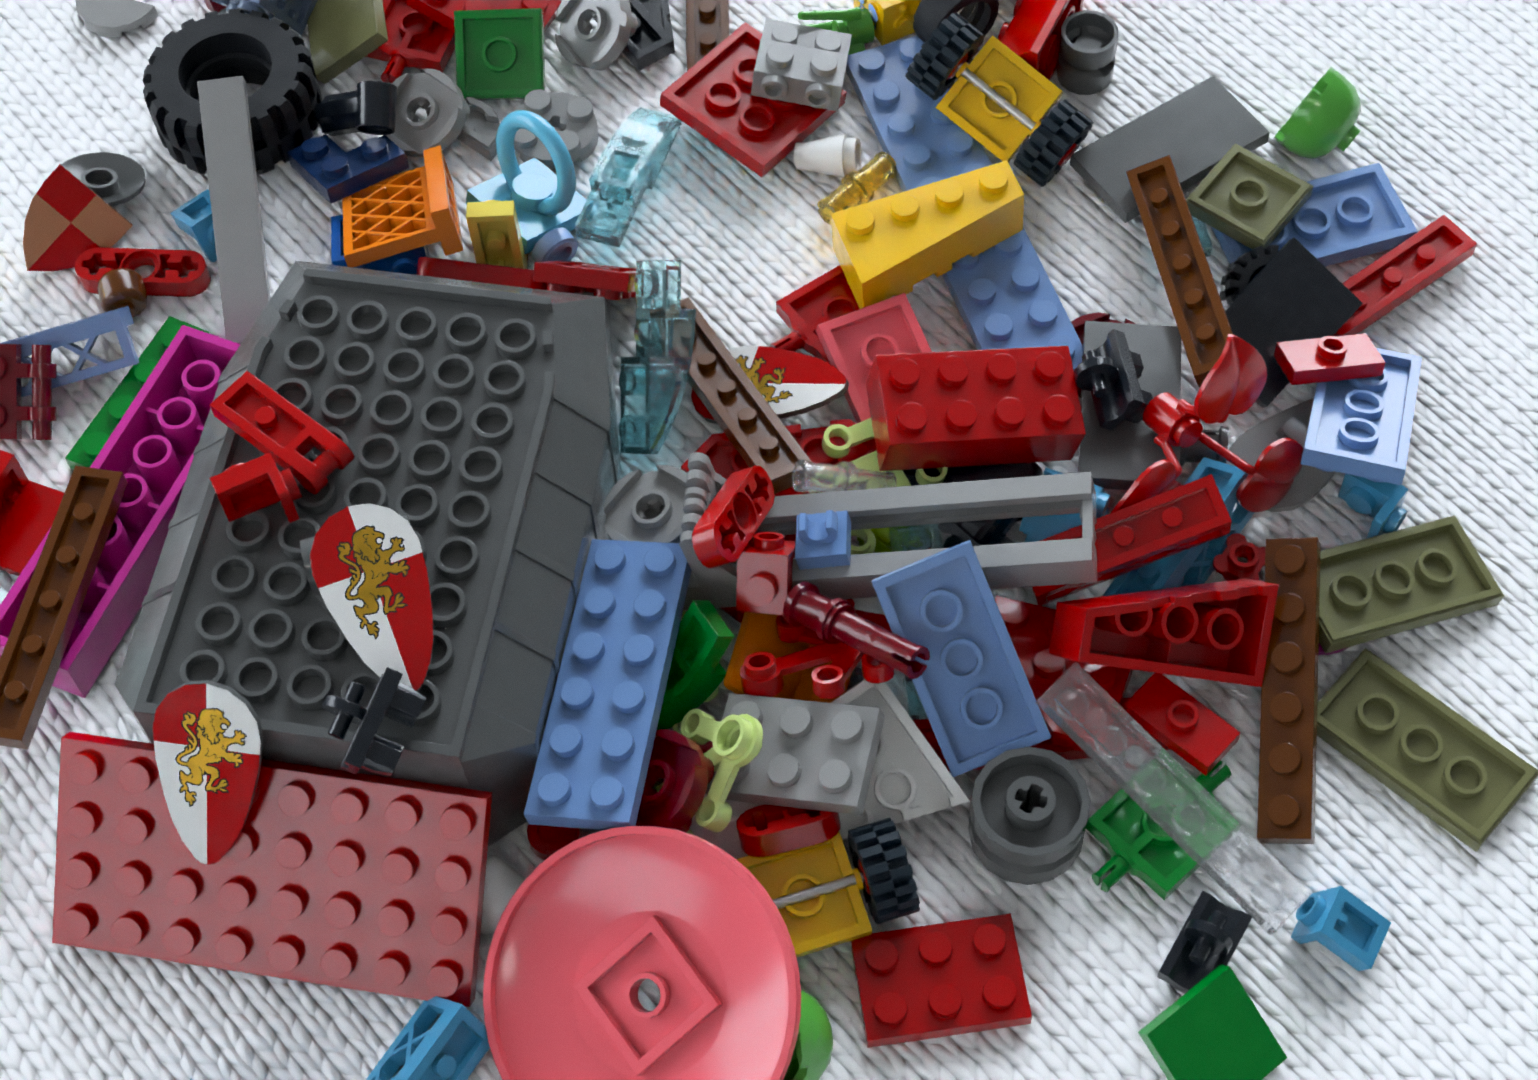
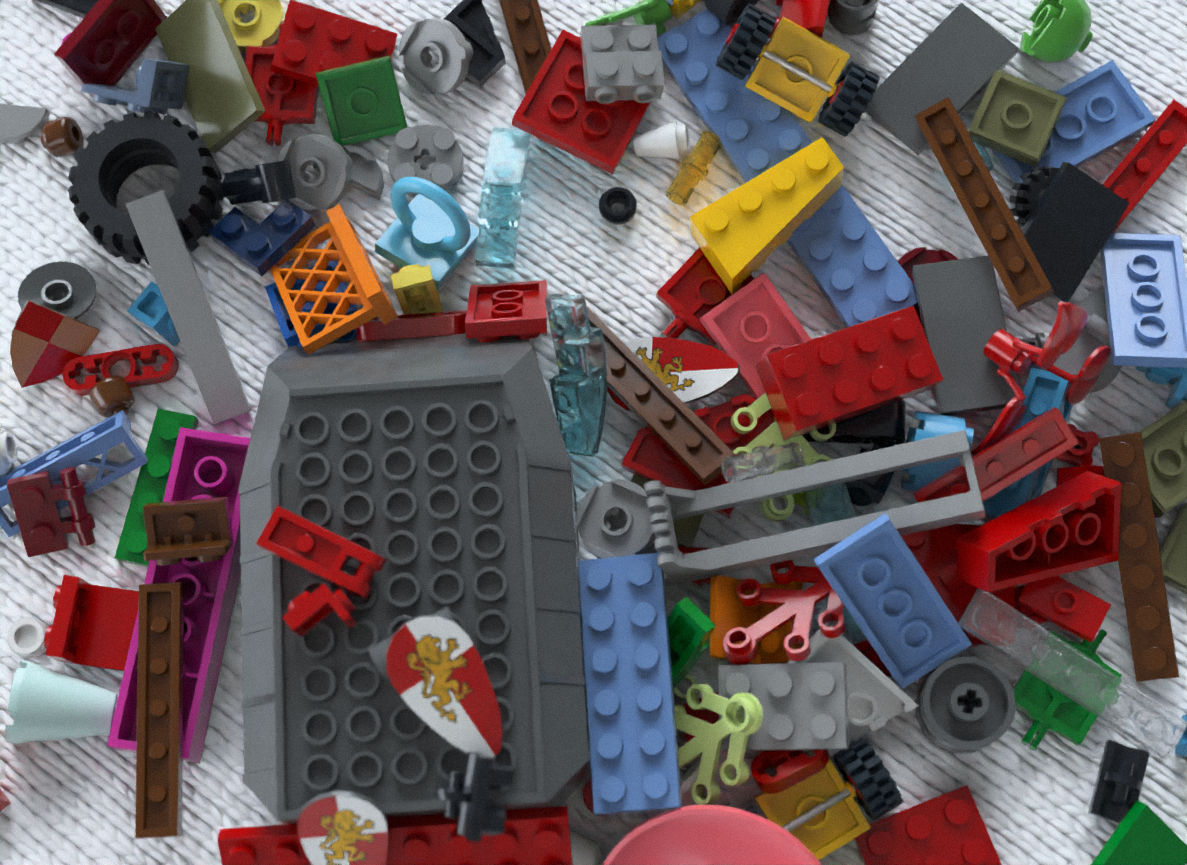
camera: 10 degrees left, 15 degrees up
(151, 419) = (187, 530): none -> reddish brown bracket
(154, 29) = (62, 137): none -> reddish brown piece
(555, 246) = (461, 280): light blue tile -> none
(685, 784) = (708, 753): dark red plate -> none
(733, 517) = (690, 525): red beam -> none
(759, 201) = (613, 196): none -> black plate
(765, 574) = (724, 561): bracket -> none
(823, 540) = (763, 525): medium blue tile -> none
(836, 622) = (793, 594): dark red pin -> none
(1112, 378) = (953, 326): black hips -> none
(1329, 359) = (1112, 259): plate -> none

